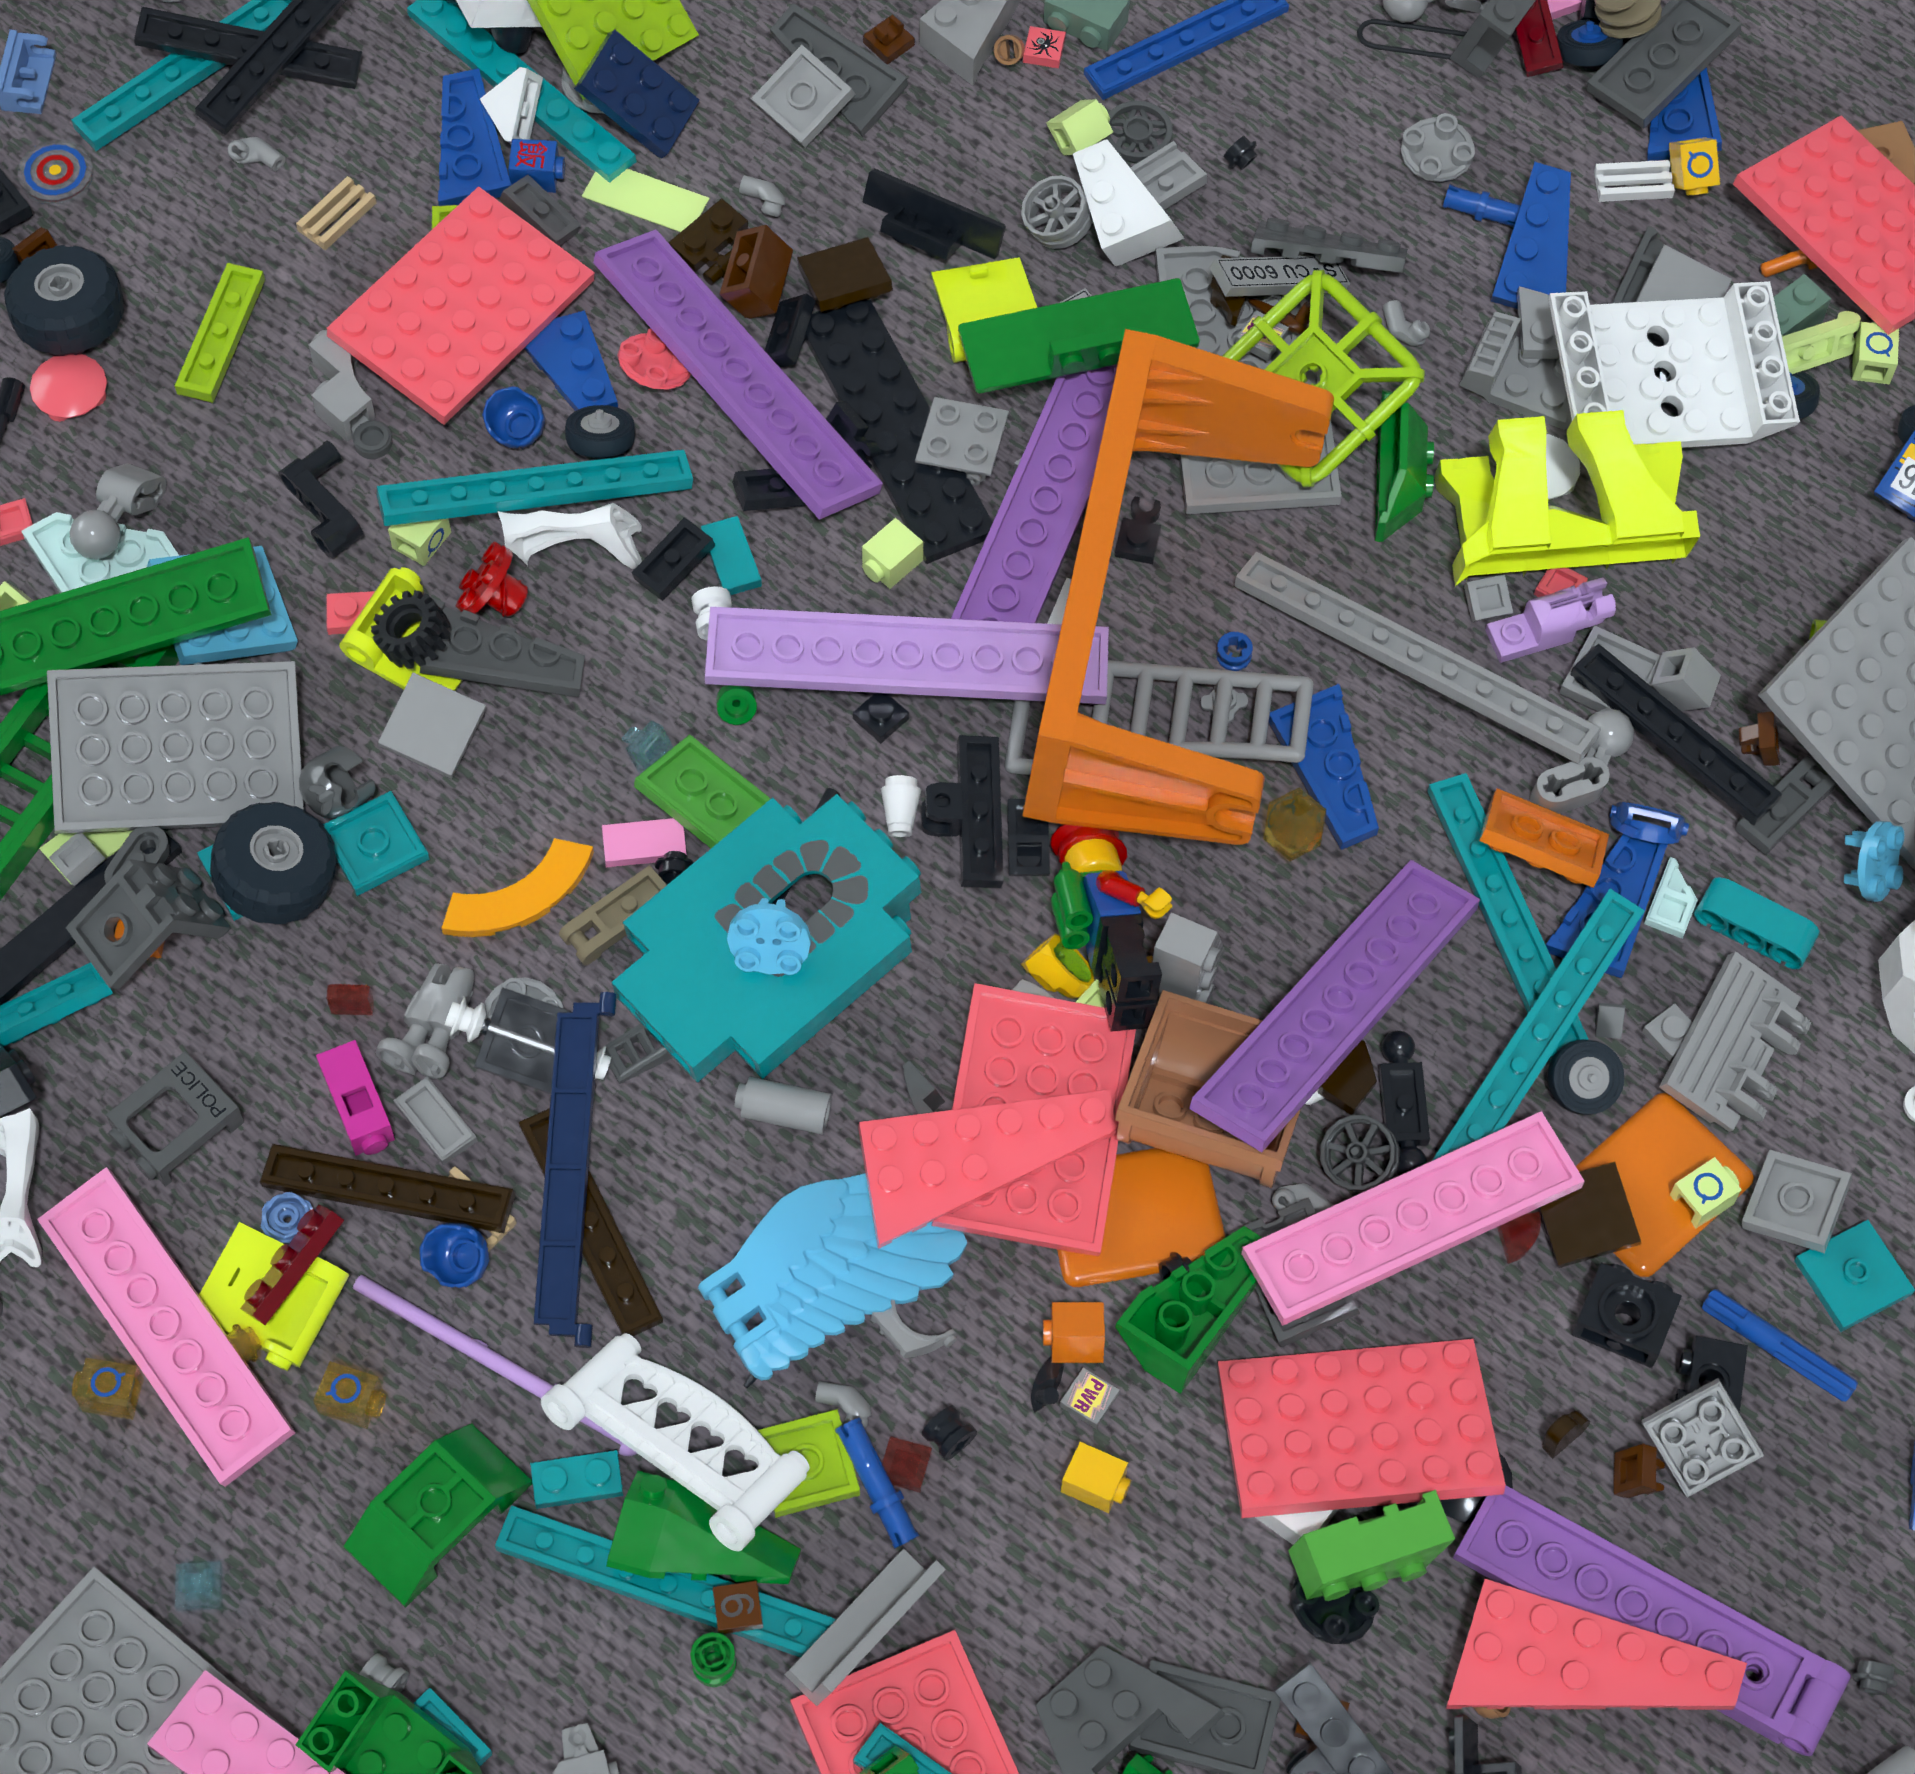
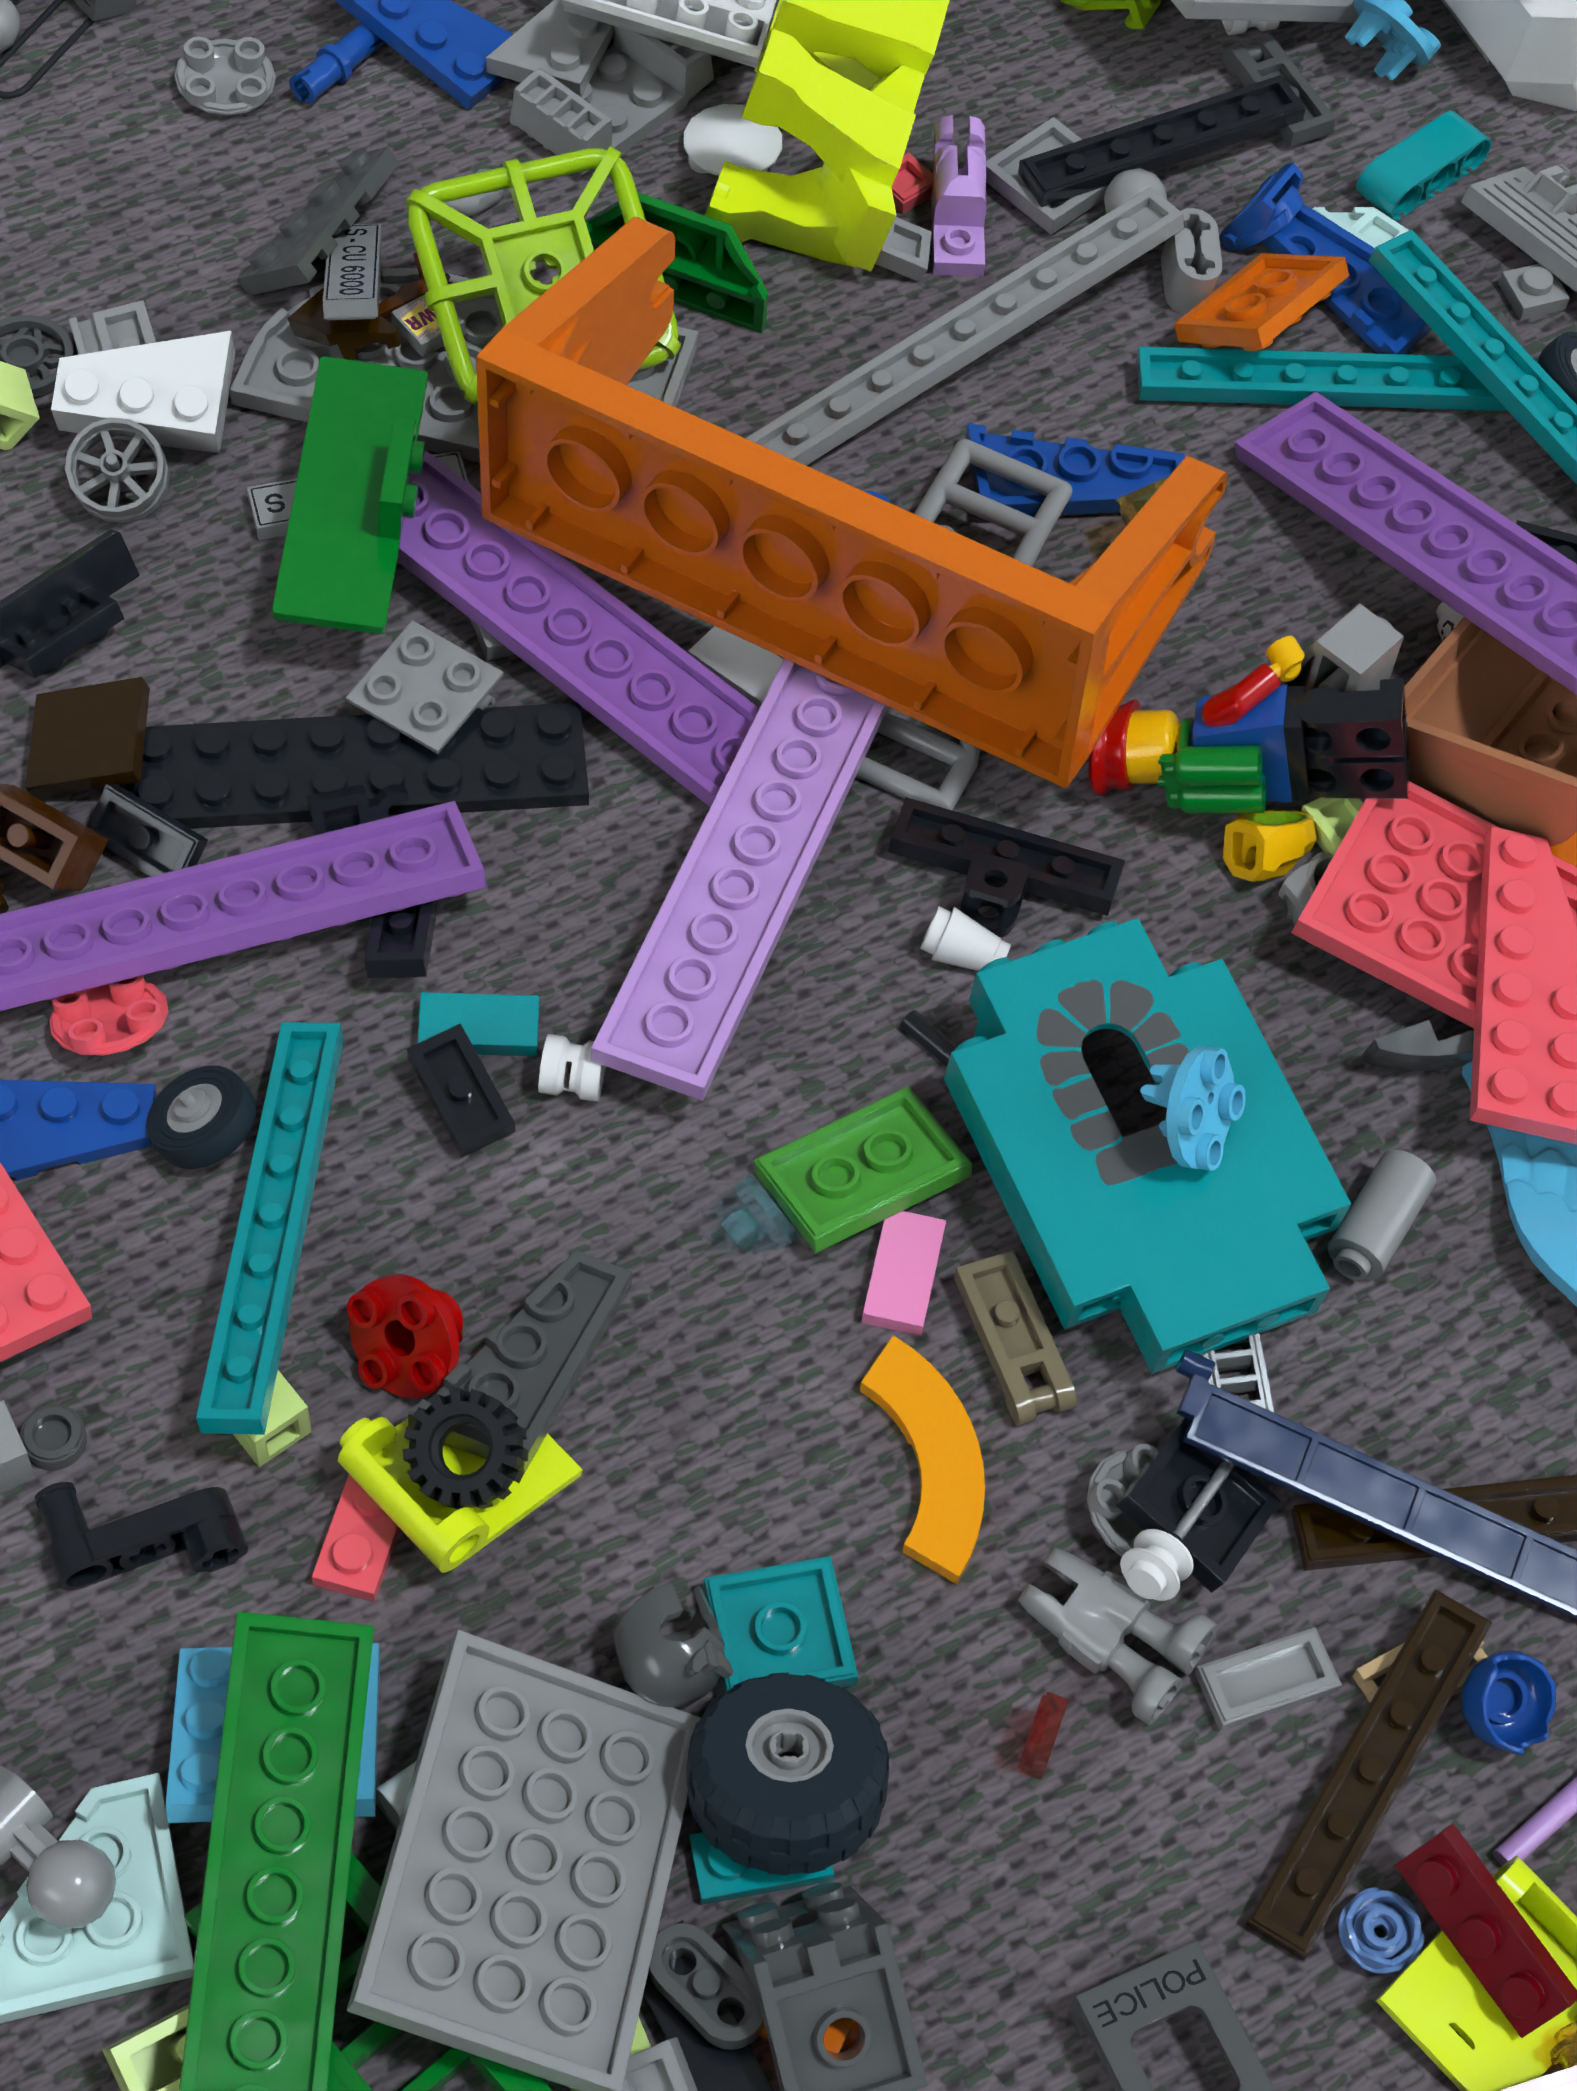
camera: 75 degrees left, 5 degrees down
(356, 1098) = (1213, 1773): dark pink brick -> none
(432, 725) = (616, 1486): light grey tile -> none
(513, 417) = (126, 1221): blue hair -> none
(606, 525) = (342, 1236): white animal -> none
(672, 865) = (964, 1241): black plate -> none
(736, 704) = (734, 1086): green tile -> none
(880, 716) = (814, 927): black plate -> none
(891, 554) = (570, 827): yellowish green brick -> none
(980, 293) = (215, 600): neon yellow door -> none
(1027, 842) = (1075, 820): black slope -> none
(1241, 153) = (123, 261): black plate -> none
(1686, 679) = (1092, 104): light grey brick -> none
(1762, 739) = (1191, 73): reddish brown tile -> none

